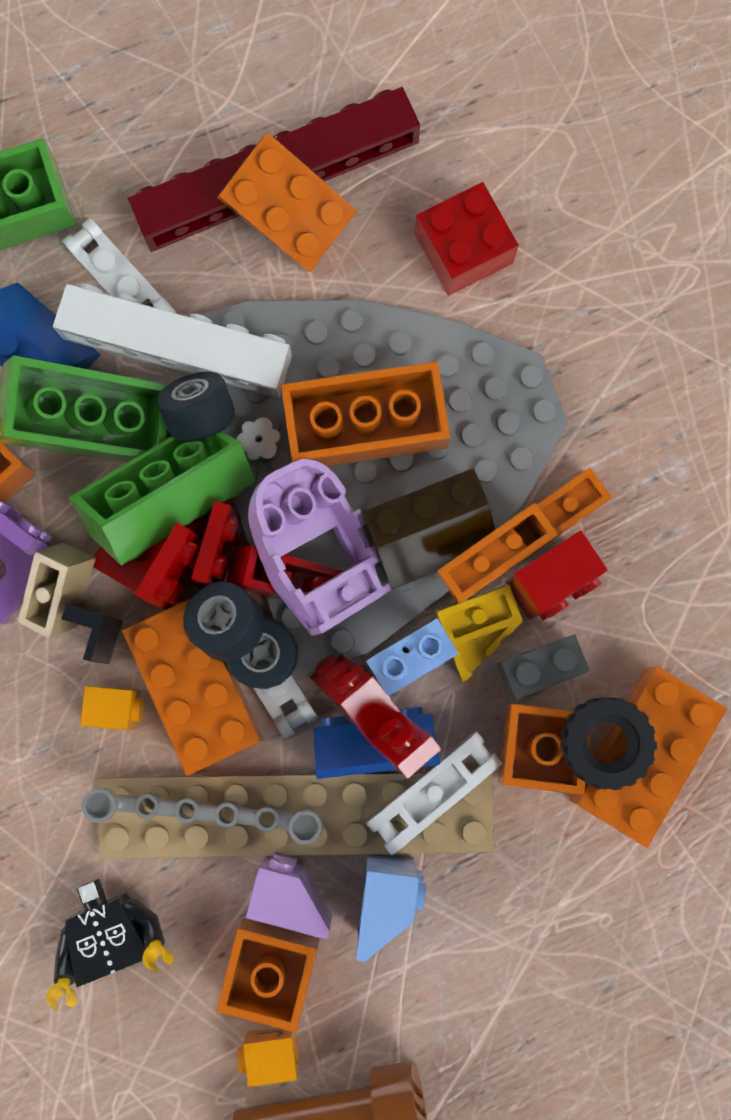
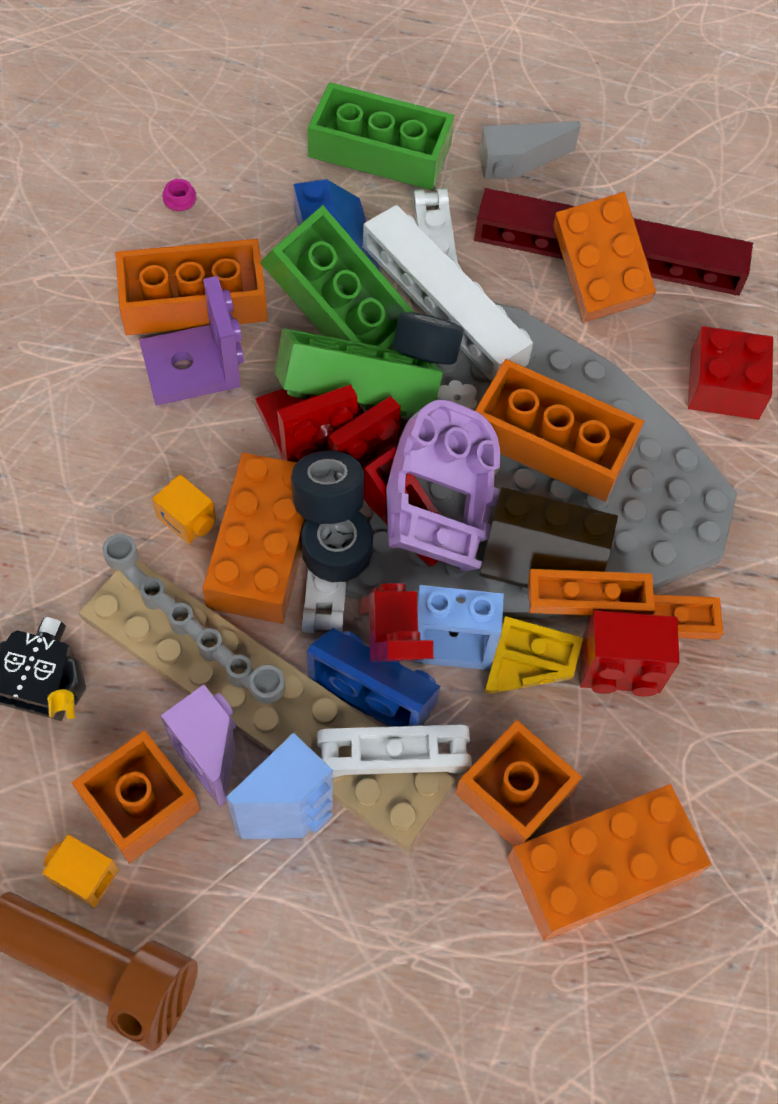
camera: 30 degrees right, 20 degrees down
(55, 579) = (216, 395): tan brick -> none
(103, 633) = (224, 444): black panel -> none
(121, 124) = (520, 148): none -> light grey slope
(542, 667) = (567, 721): dark grey brick -> none
(639, 749) = (604, 779): black tyre -> none

